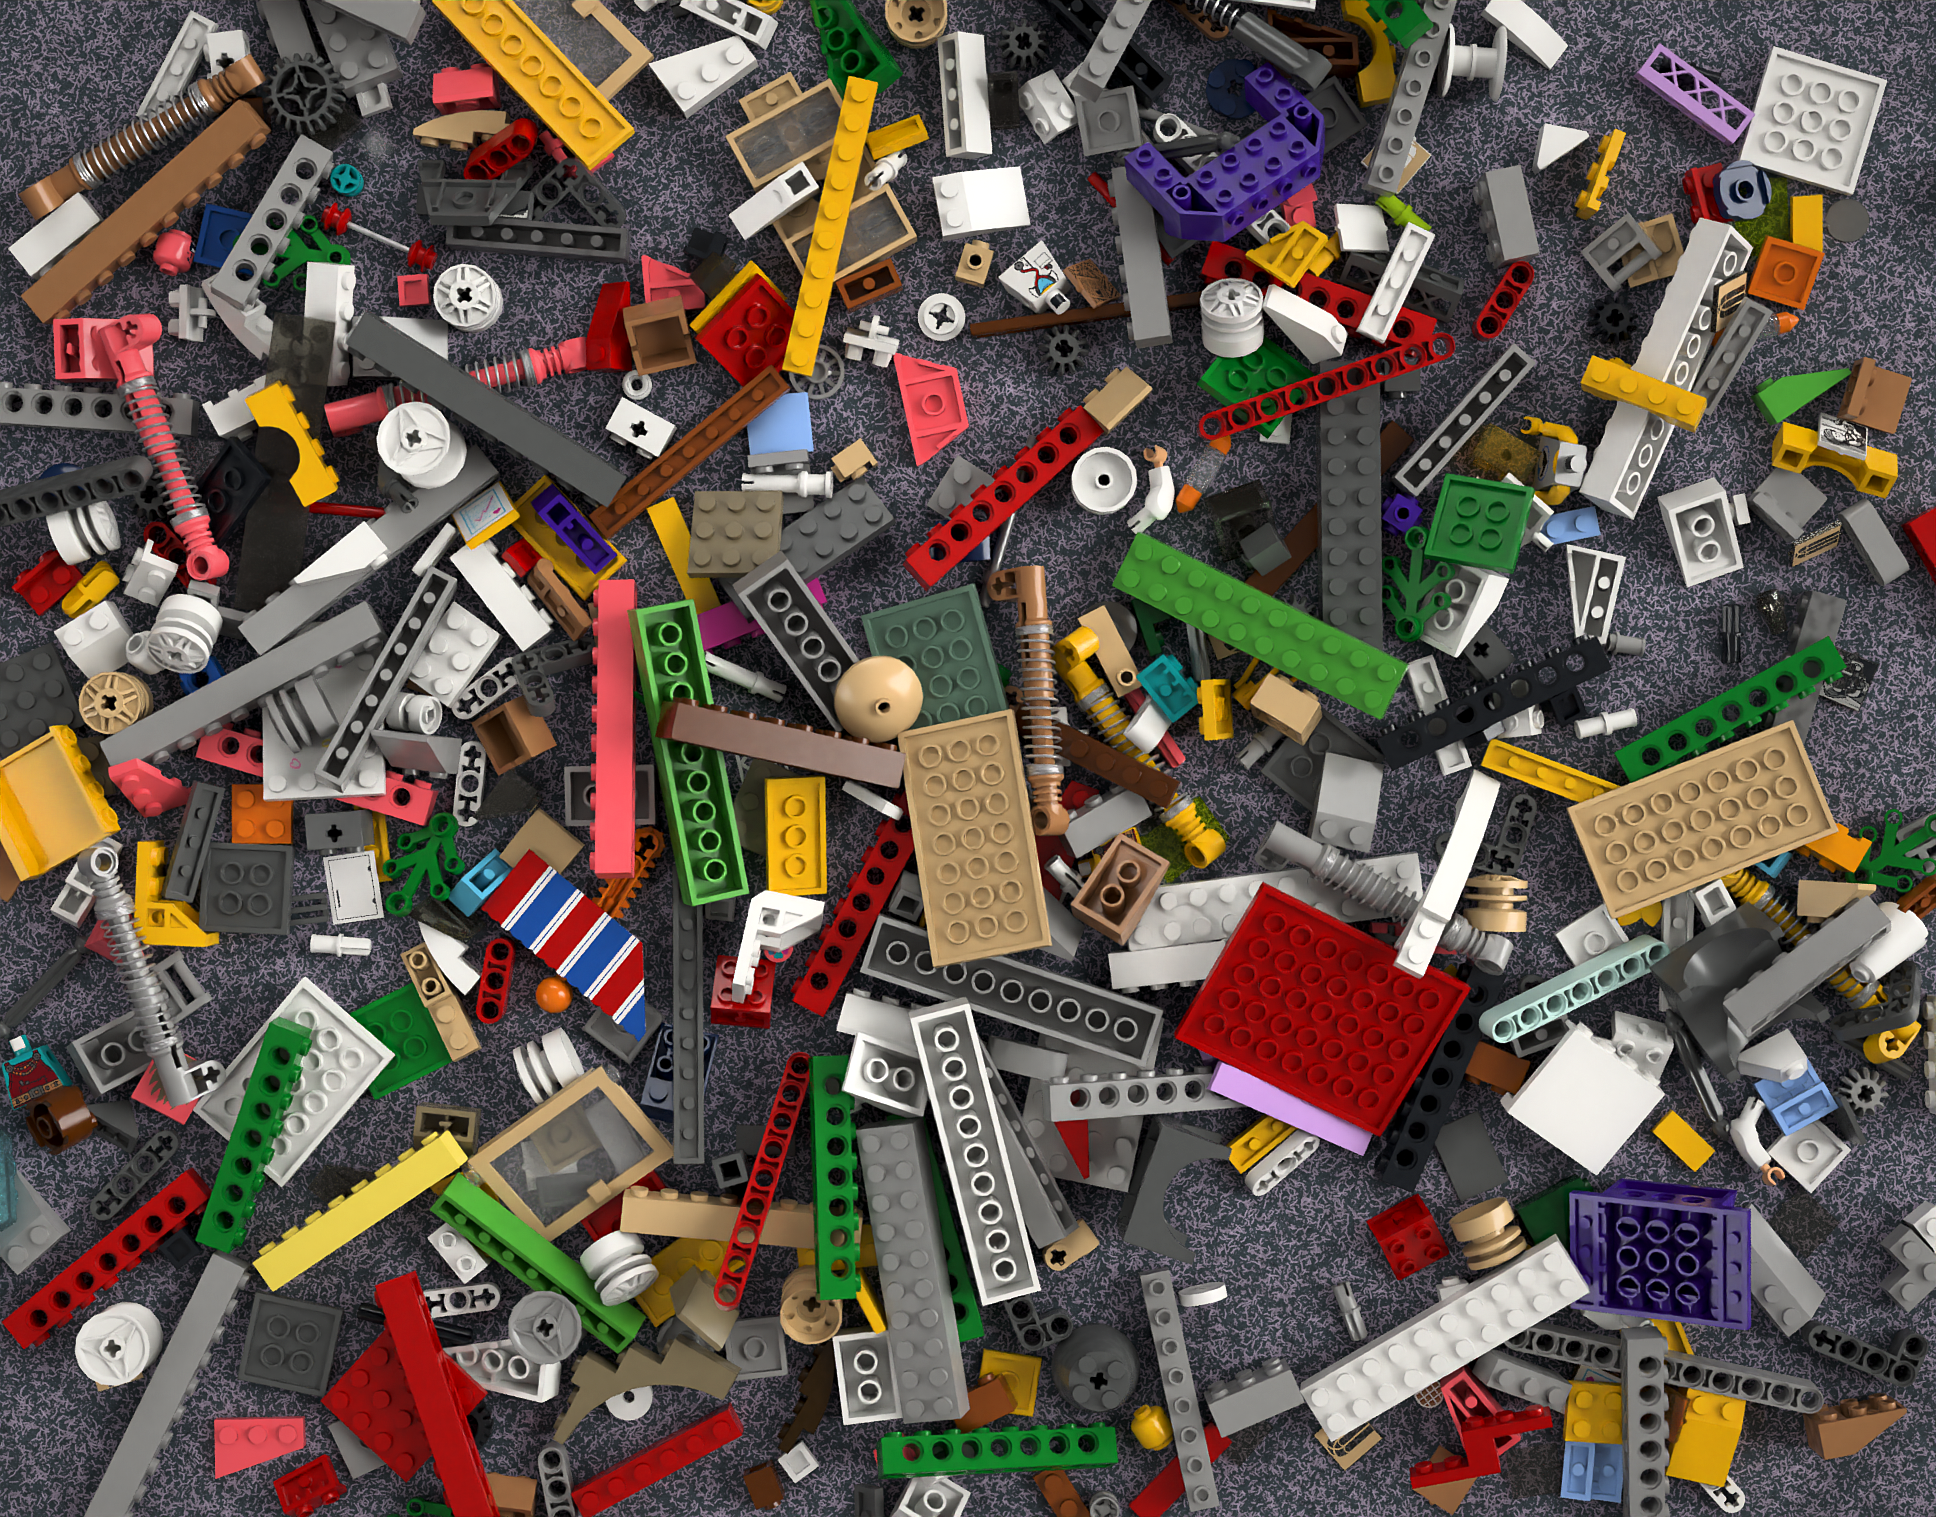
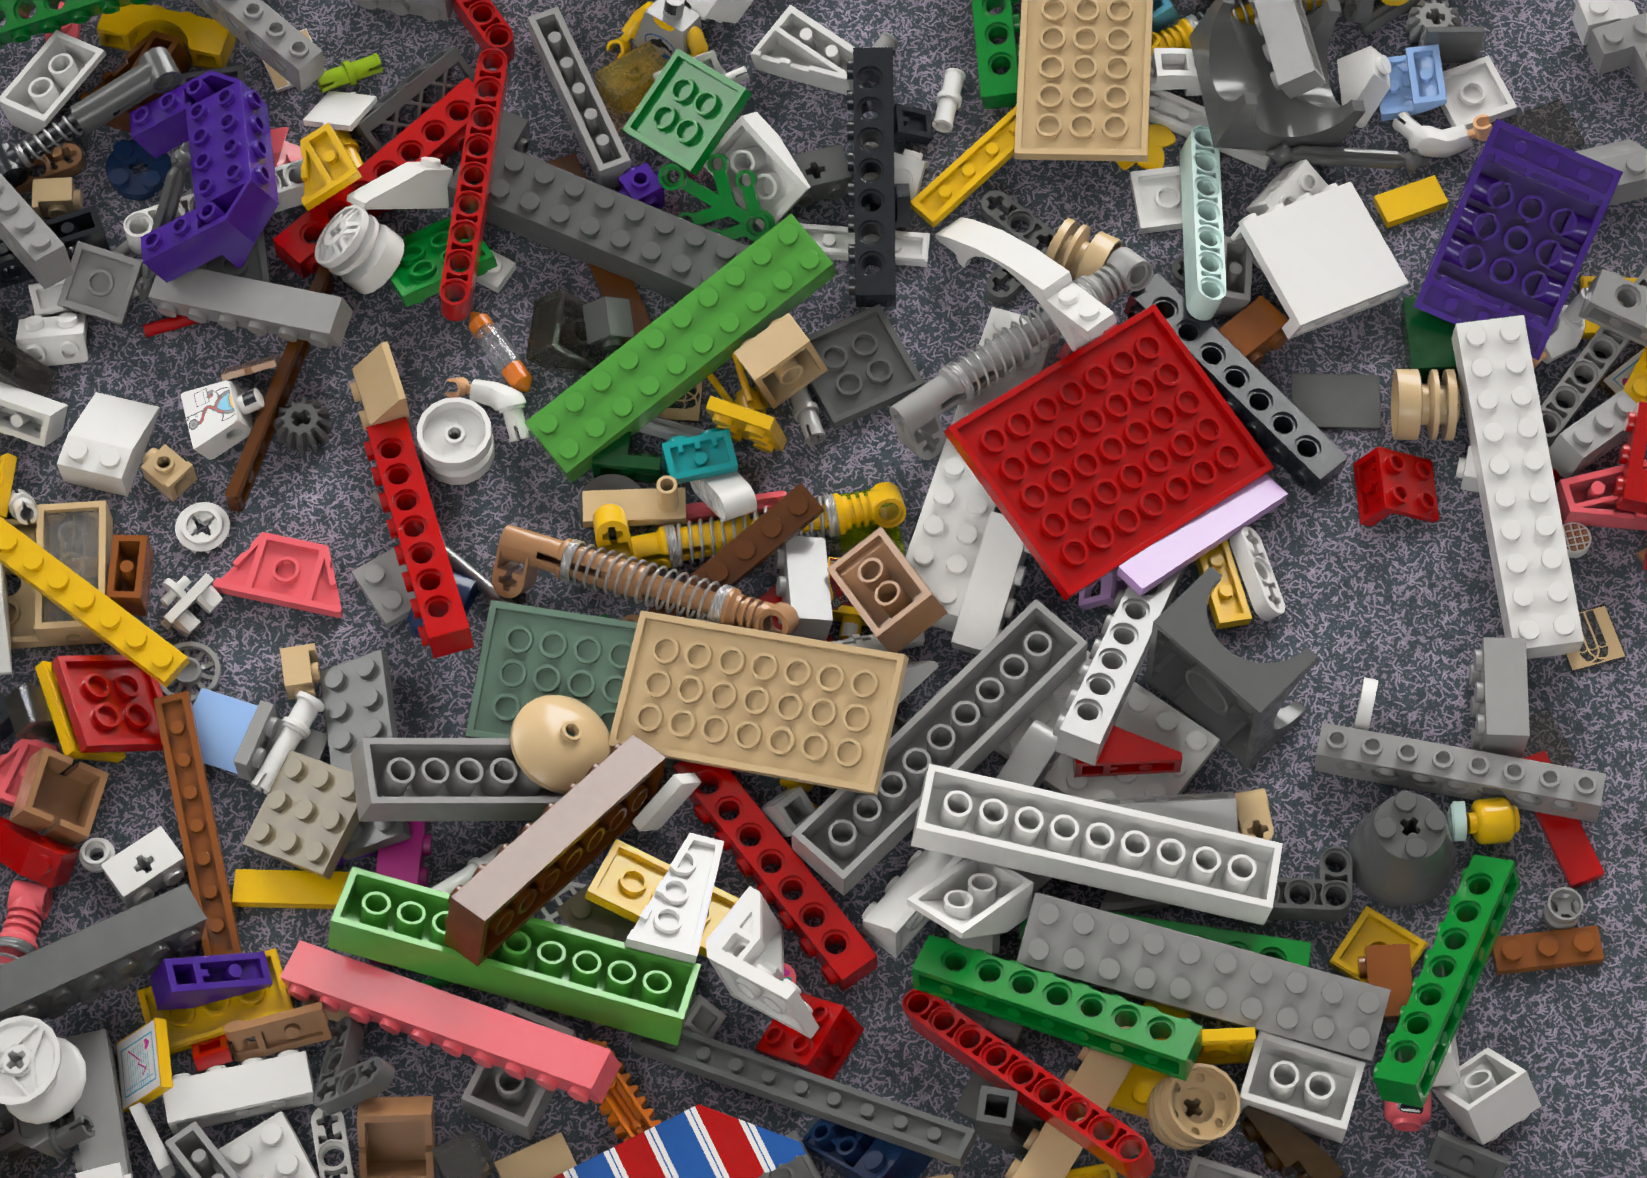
camera: 60 degrees left, 25 degrees down
(788, 854) = (678, 910): none -> white wing
(1140, 1400) = (1457, 821): none -> light aqua tile
(1172, 38) = (55, 197): none -> tan brick
(1346, 802) = (905, 349): light grey slope -> none
(1350, 1310) = (1450, 577): light grey axle -> none
(1395, 283) = (410, 96): white tile -> none
(1571, 525) = (736, 49): light blue plate -> none

